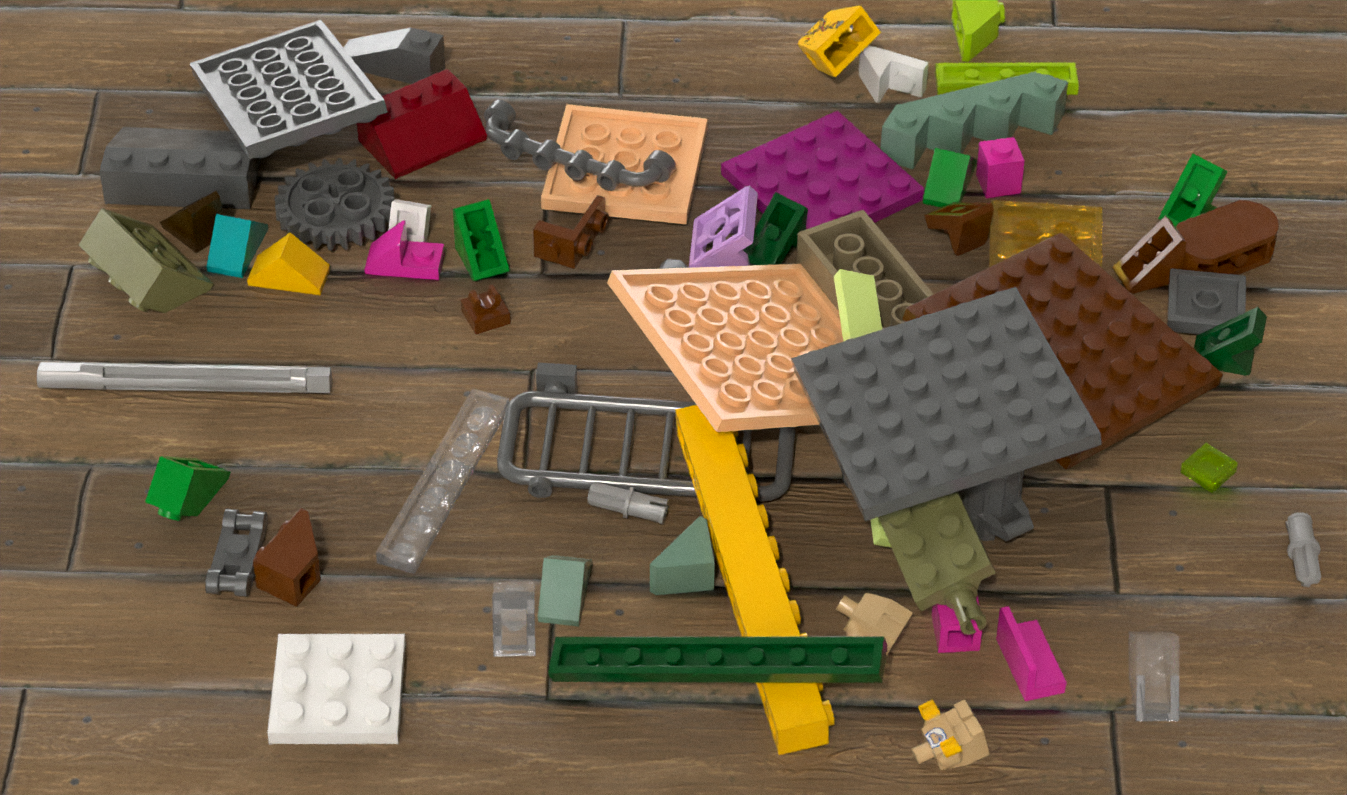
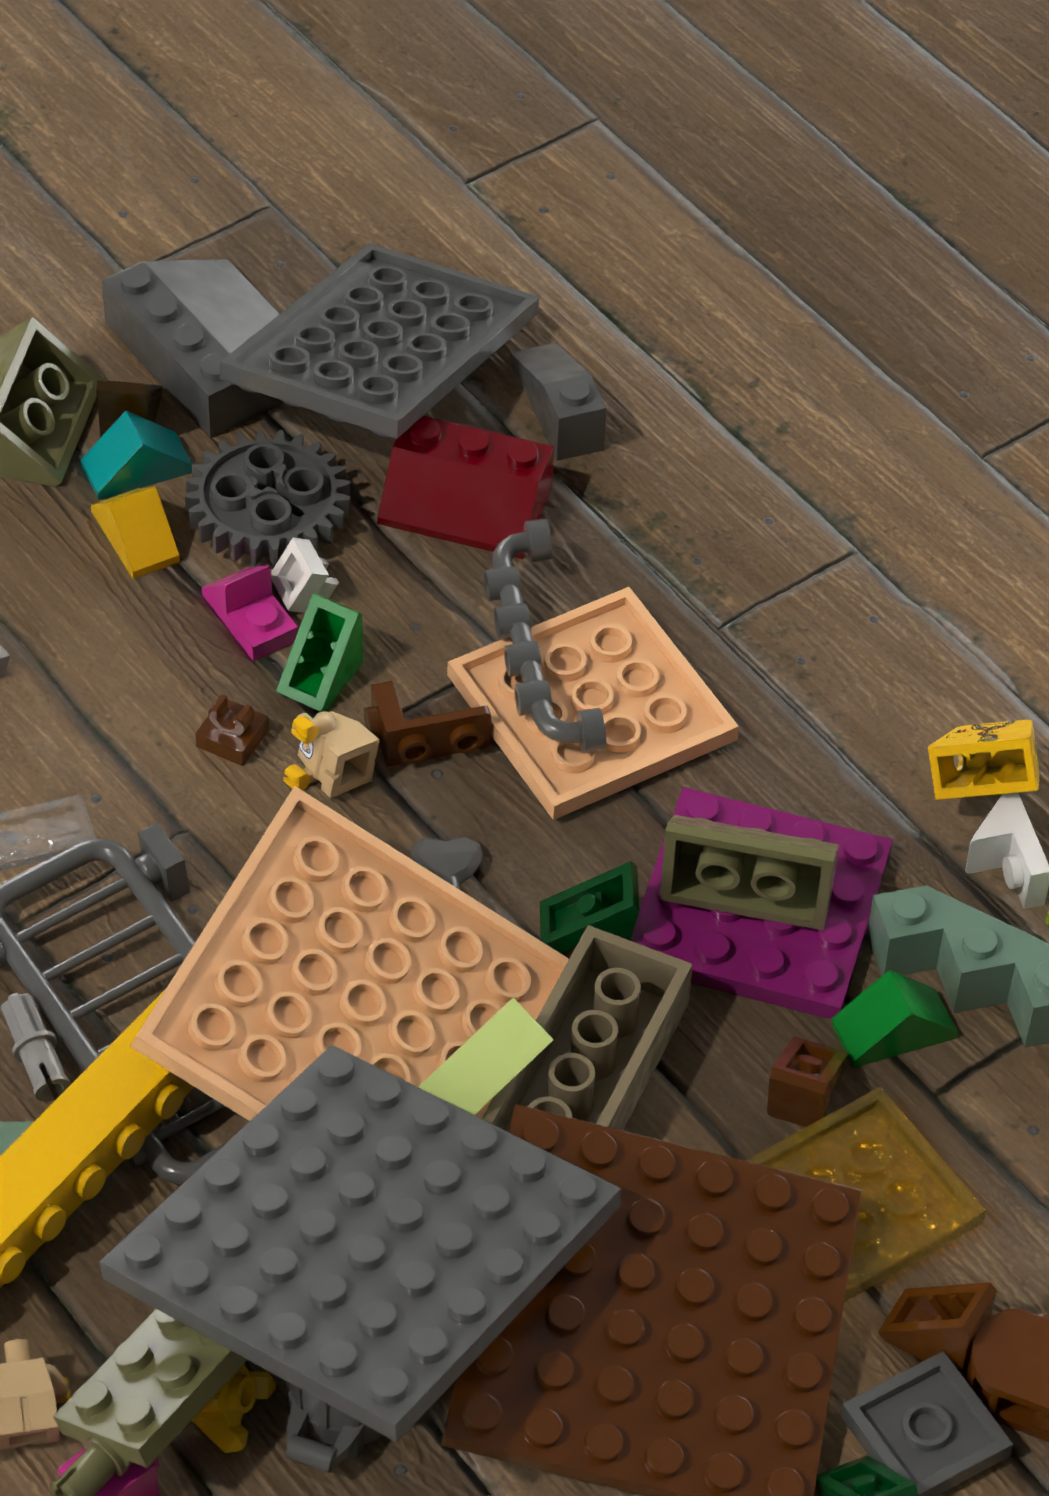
camera: 50 degrees right, 5 degrees up
(552, 276) = (333, 751): none -> tan piece
(734, 216) = (545, 860): lavender piece -> none
(823, 157) = (748, 871): none -> olive slope
(1000, 167) = (949, 1060): dark pink brick -> none

